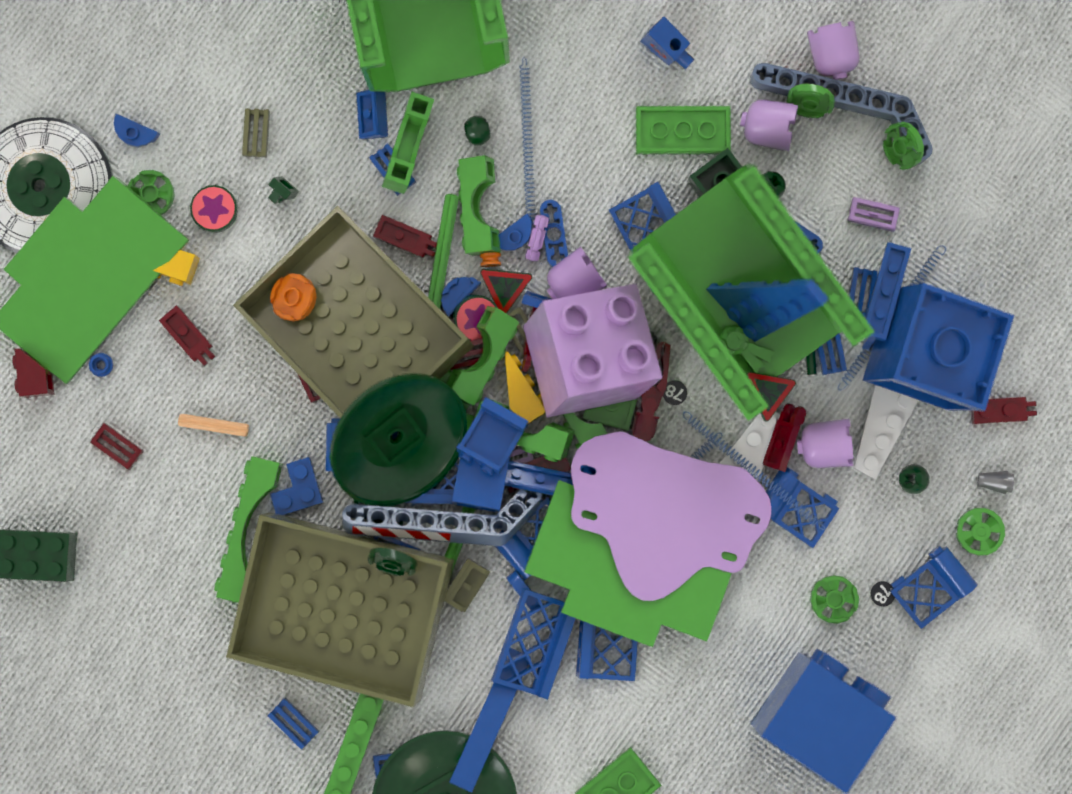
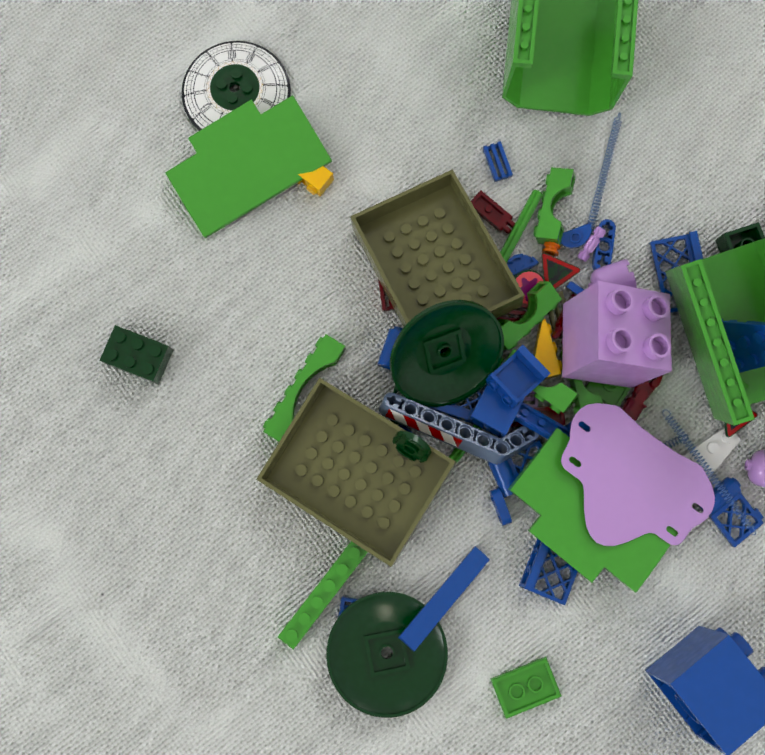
camera: 10 degrees right, 5 degrees down
(32, 377) = (181, 224): dark red slope -> none
(94, 361) = (234, 226): blue plate -> none
(133, 133) = (315, 75): blue plate -> none
(133, 457) = (234, 307): dark red tile -> none
(150, 192) = (314, 118): bright green piece -> none
(187, 335) = (306, 230): dark red hinge -> none
(213, 425) = (303, 303): light nougat axle -> none
(214, 208) = (356, 147): tile -> none
(246, 133) = (410, 90): olive tile -> none
(272, 715) = (281, 534): blue tile -> none
(281, 190) = (411, 149): dark green tile -> none
(293, 297) = (396, 226): orange tile -> none
(304, 492) = (355, 375): blue plate -> none
(372, 114) = (494, 117): blue slope -> none
(407, 142) = (517, 143): bright green arch -> none
(466, 585) = (457, 486): olive hinge -> none
(477, 130) = (570, 152): dark green piece -> none
(551, 654) = (508, 557): blue fence -> none
(661, 37) = (732, 134): blue torso -> none
(675, 392) = (660, 394): black sticker -> none
(682, 129) = (722, 201): bright green tile -> none
(784, 437) = (738, 454): dark red hinge -> none
(834, 599) = (740, 592): bright green piece -> none

